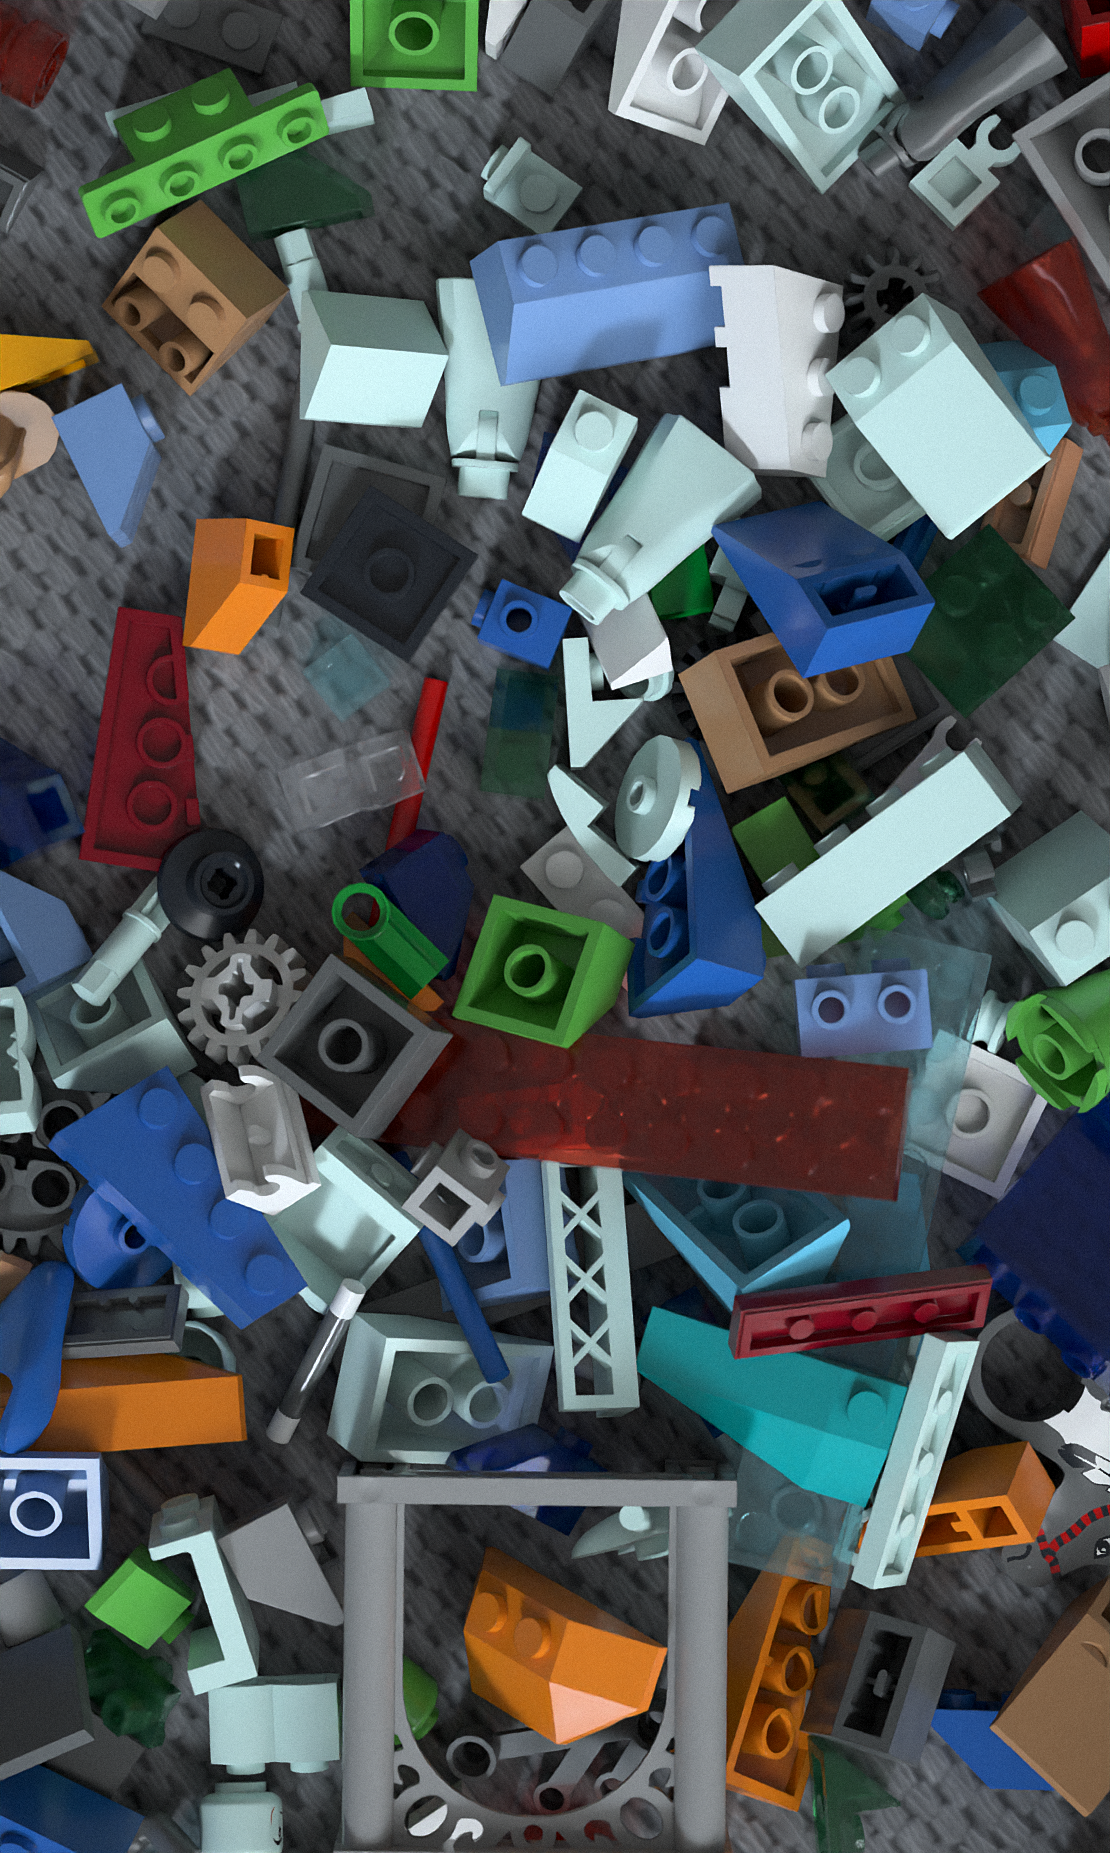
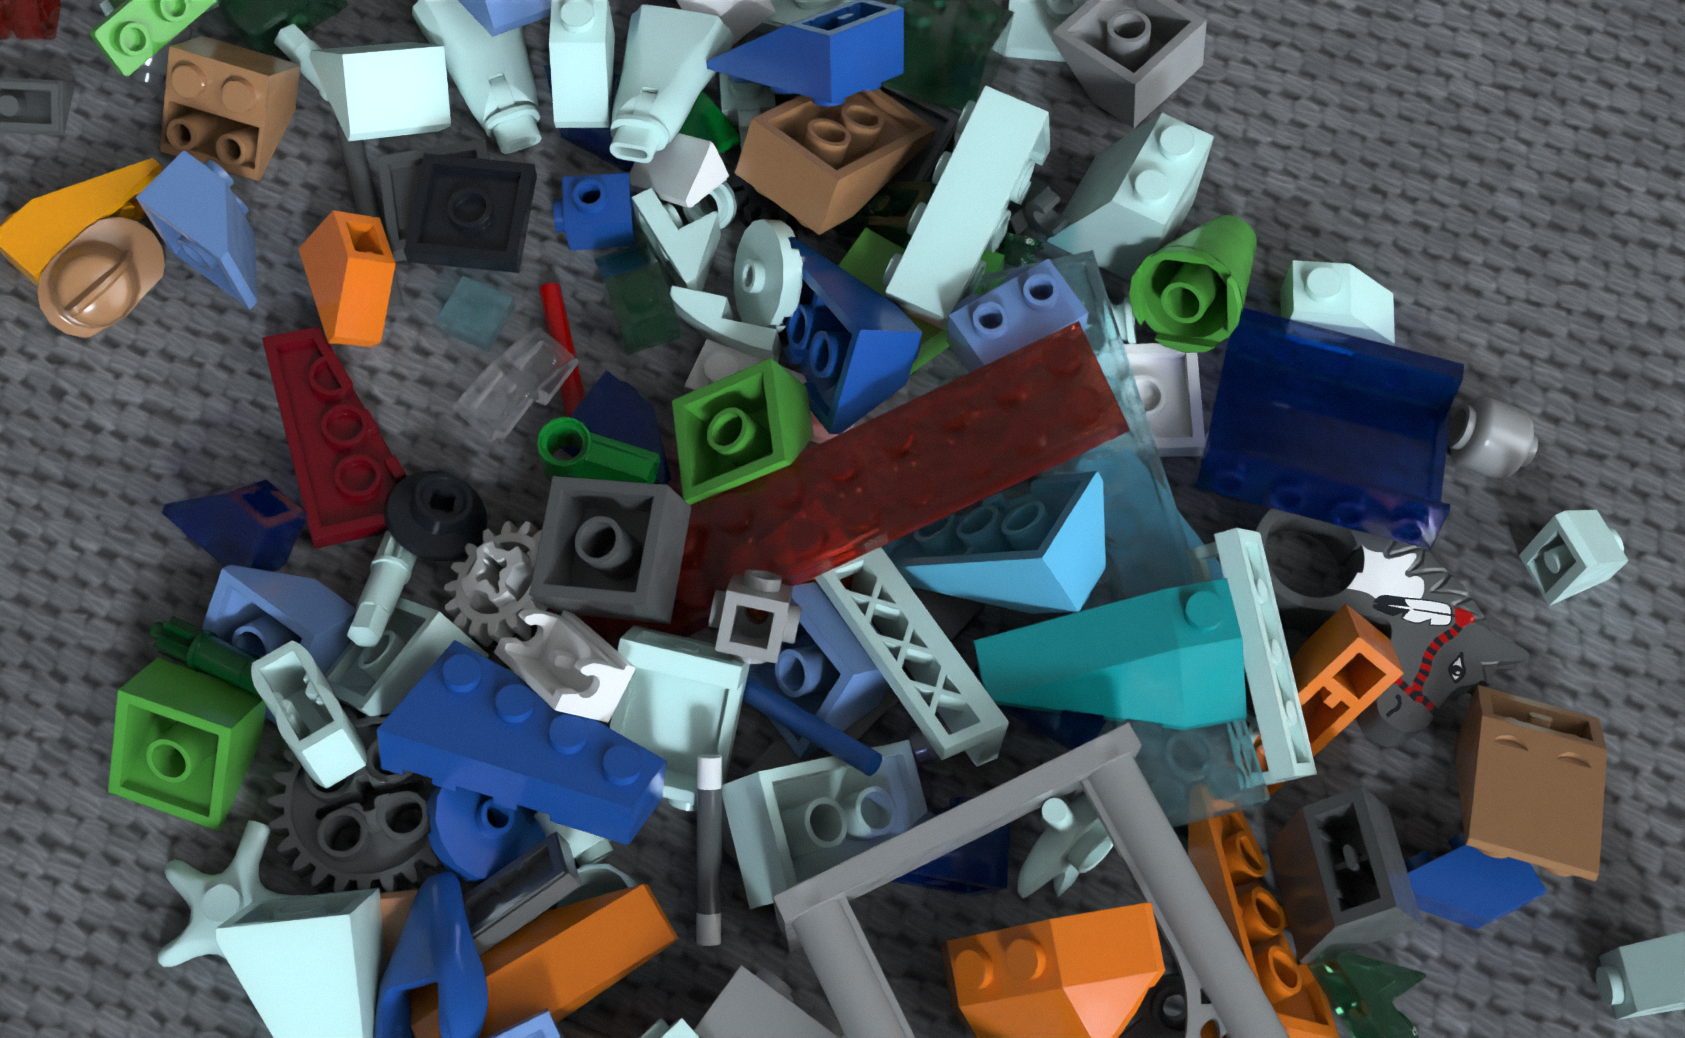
camera: 25 degrees left, 20 degrees down
(859, 1311) = (1145, 545): dark red tile -> none

